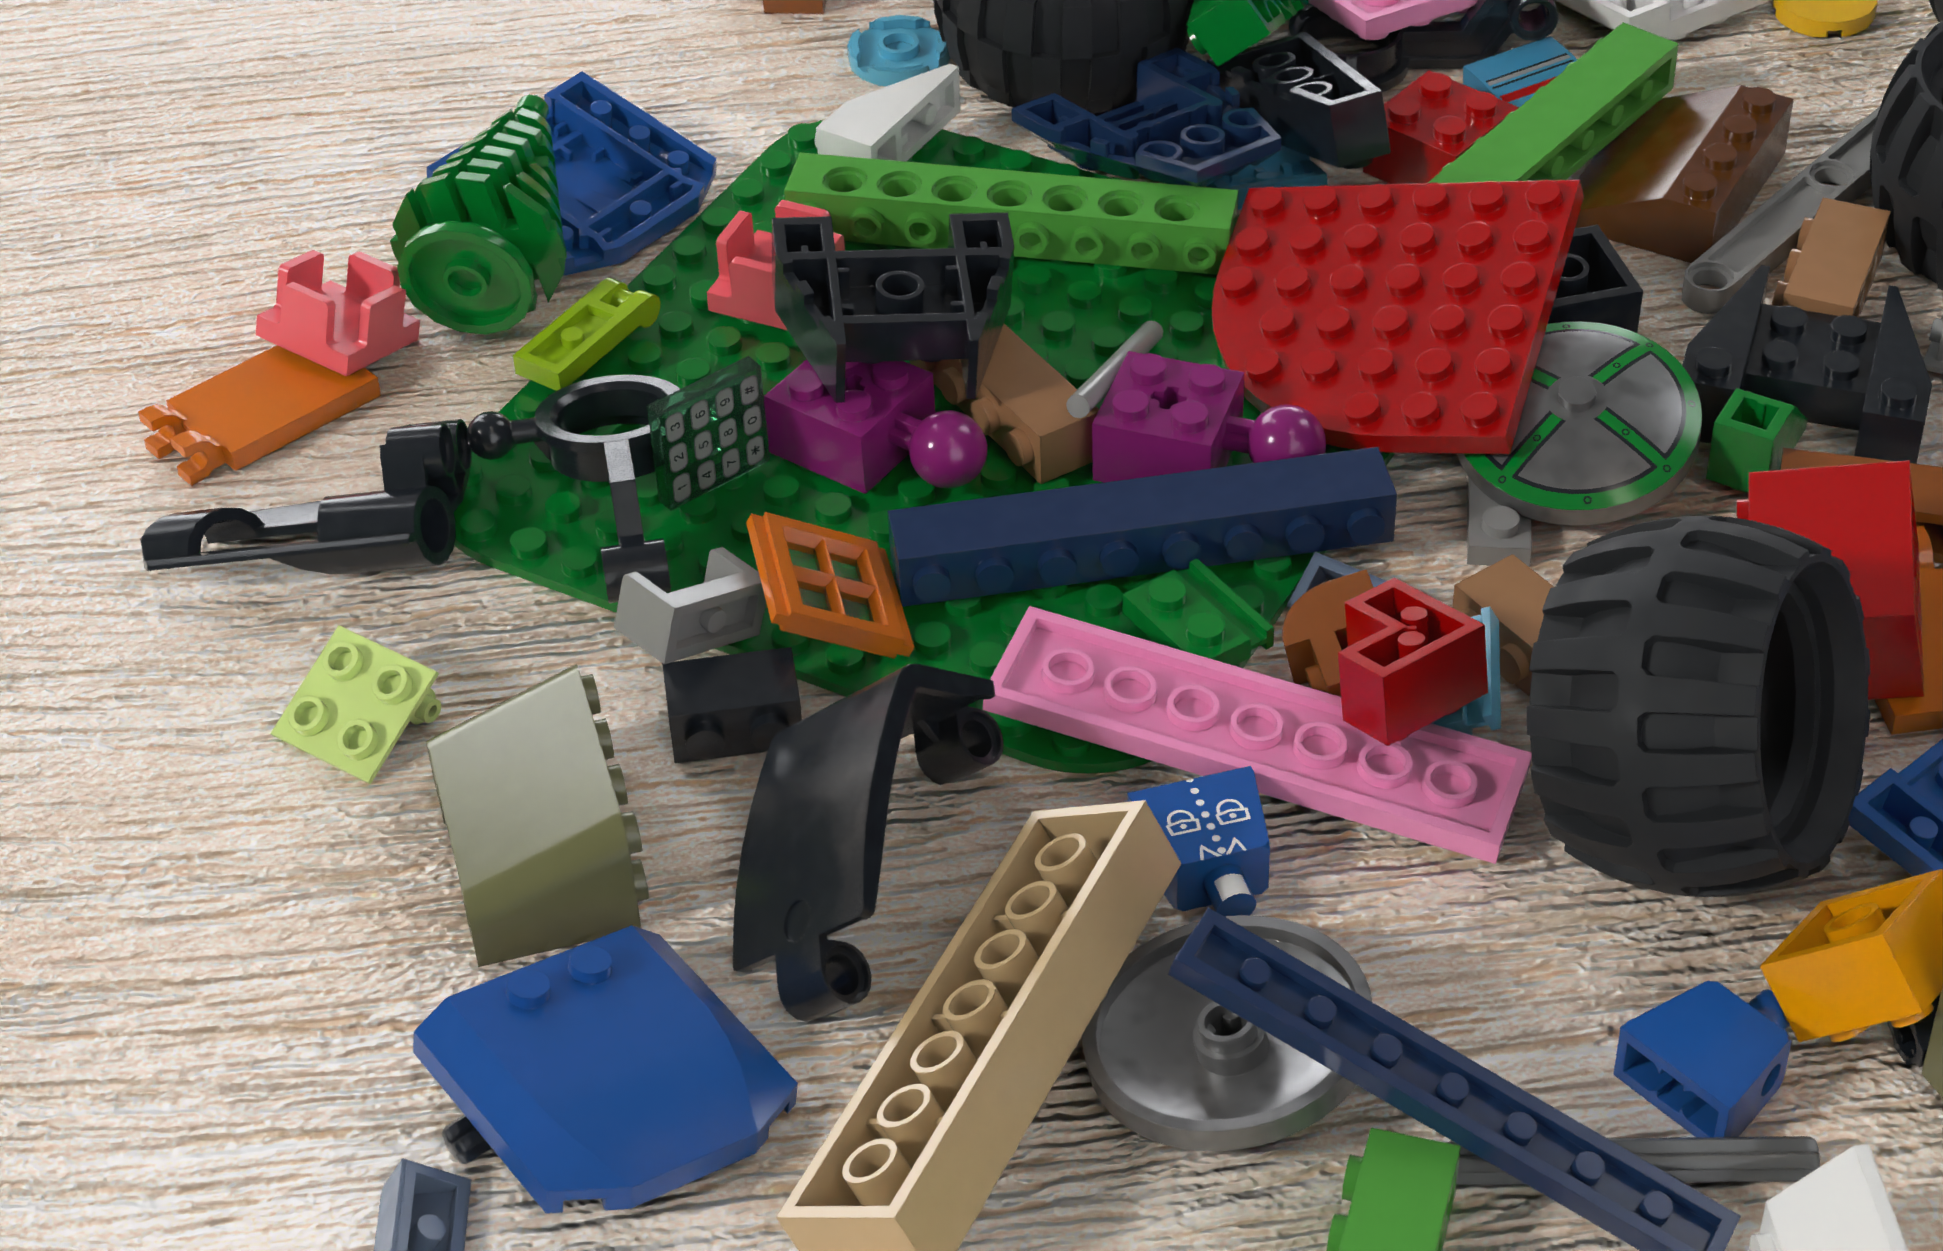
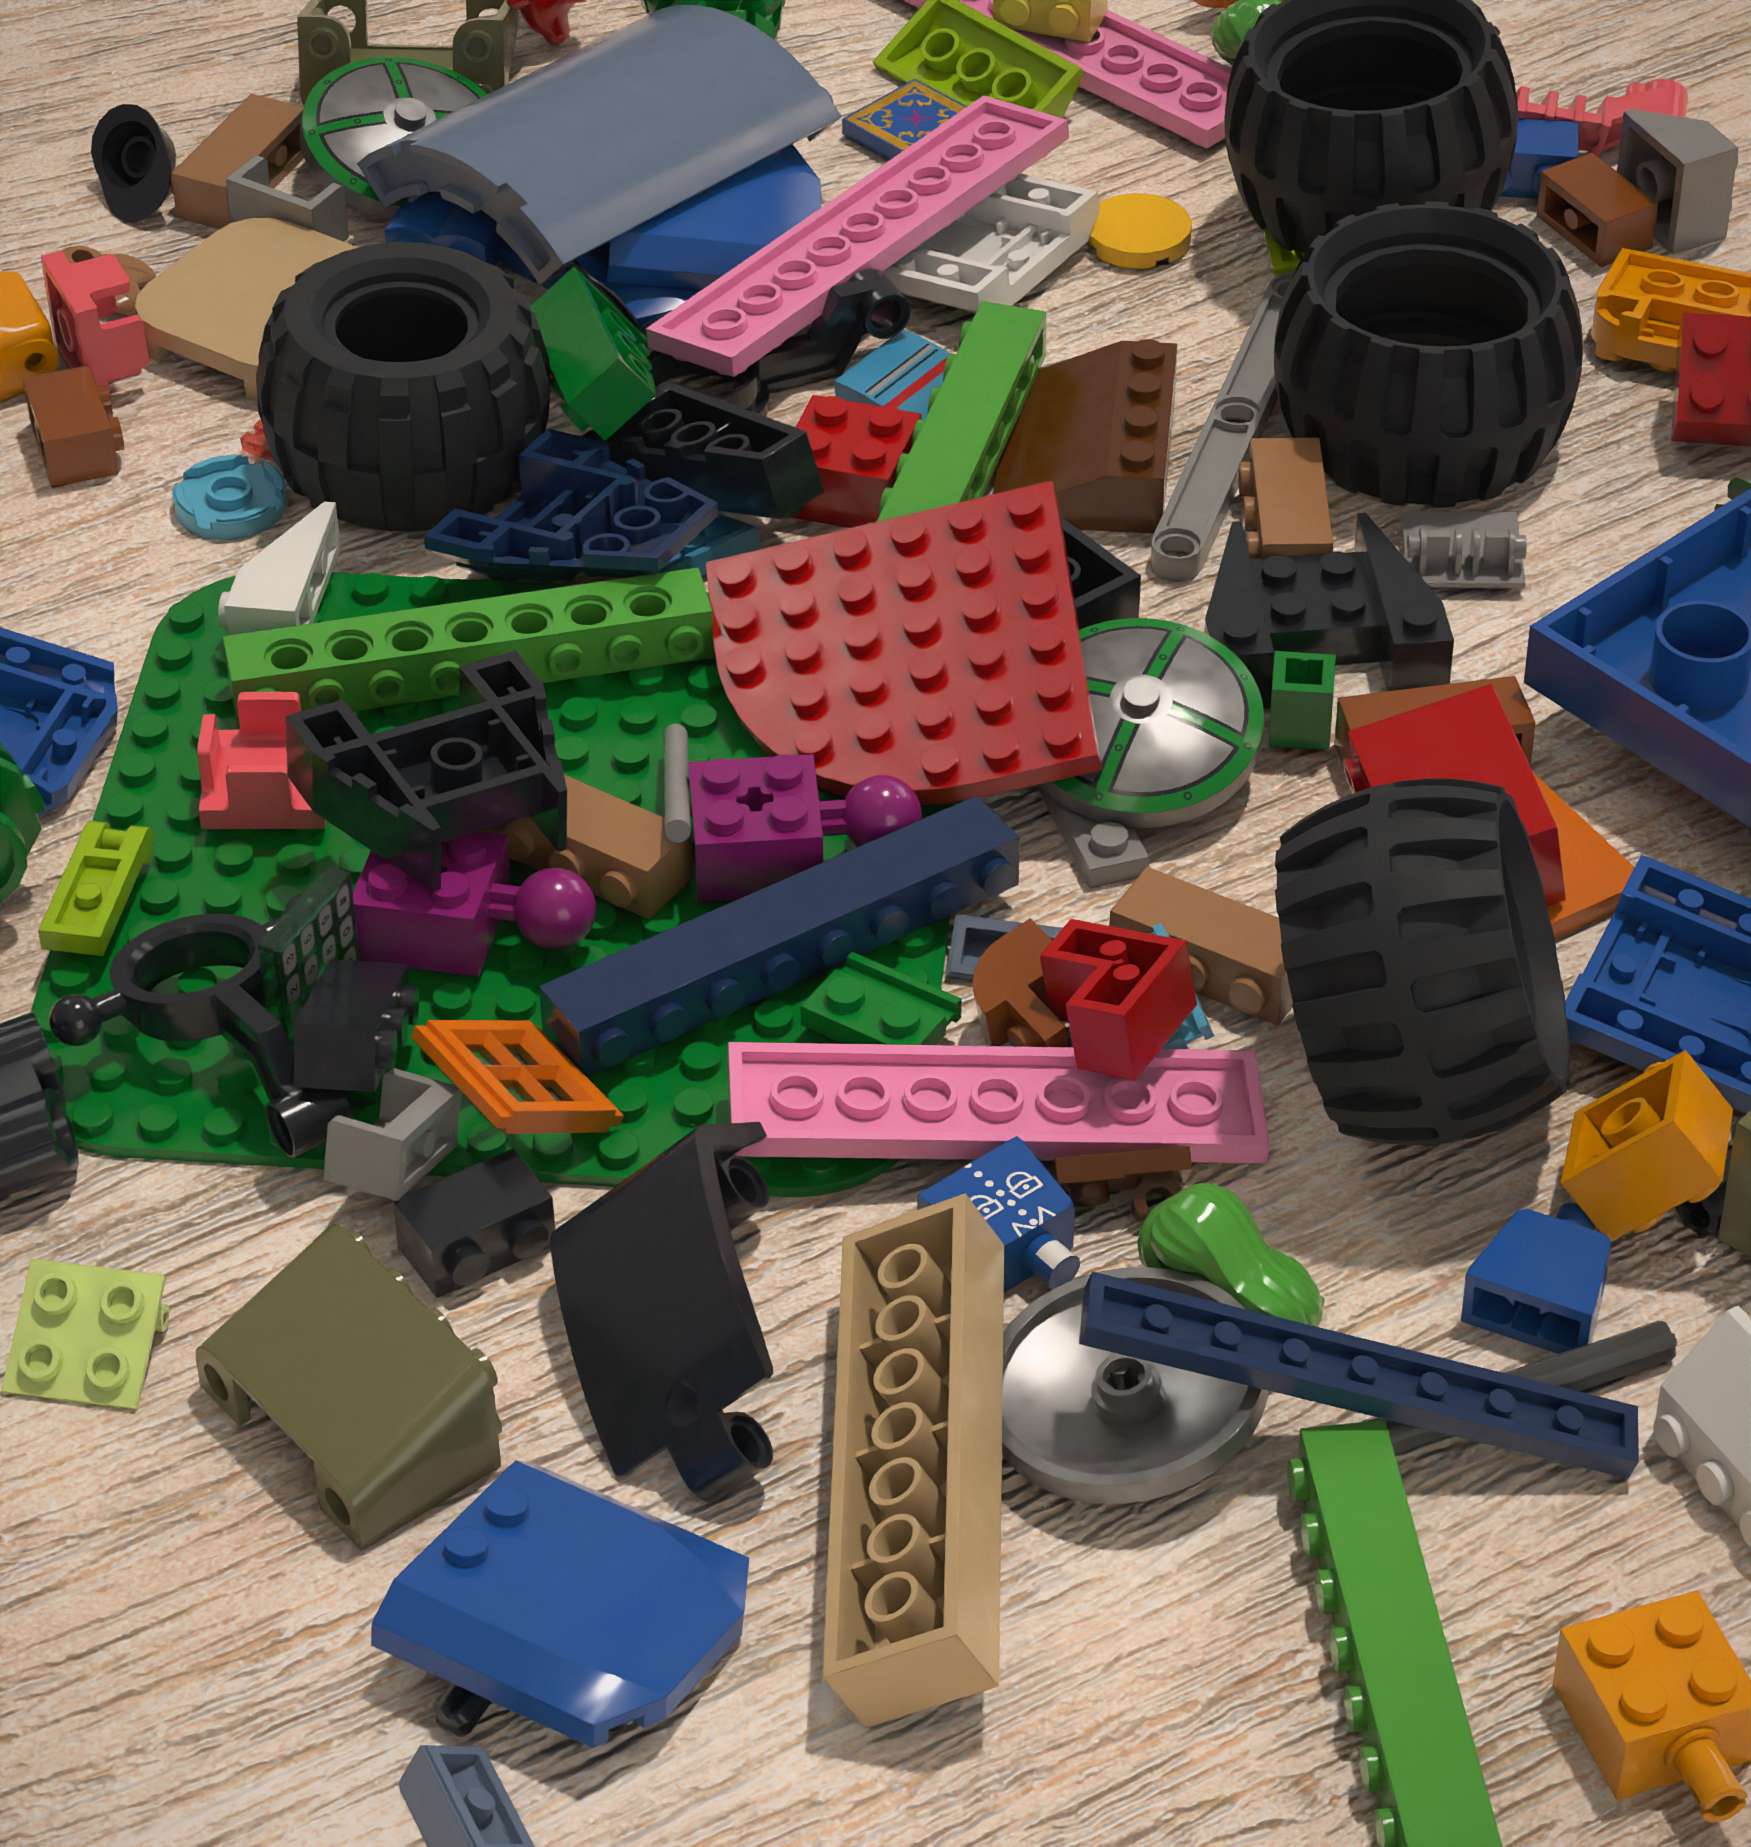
camera: 25 degrees left, 0 degrees up
(704, 499) = (353, 1025): none -> black brick
(1311, 827) = (1094, 1177): none -> reddish brown plate
(1385, 926) = (1215, 1238): none -> bright green piece

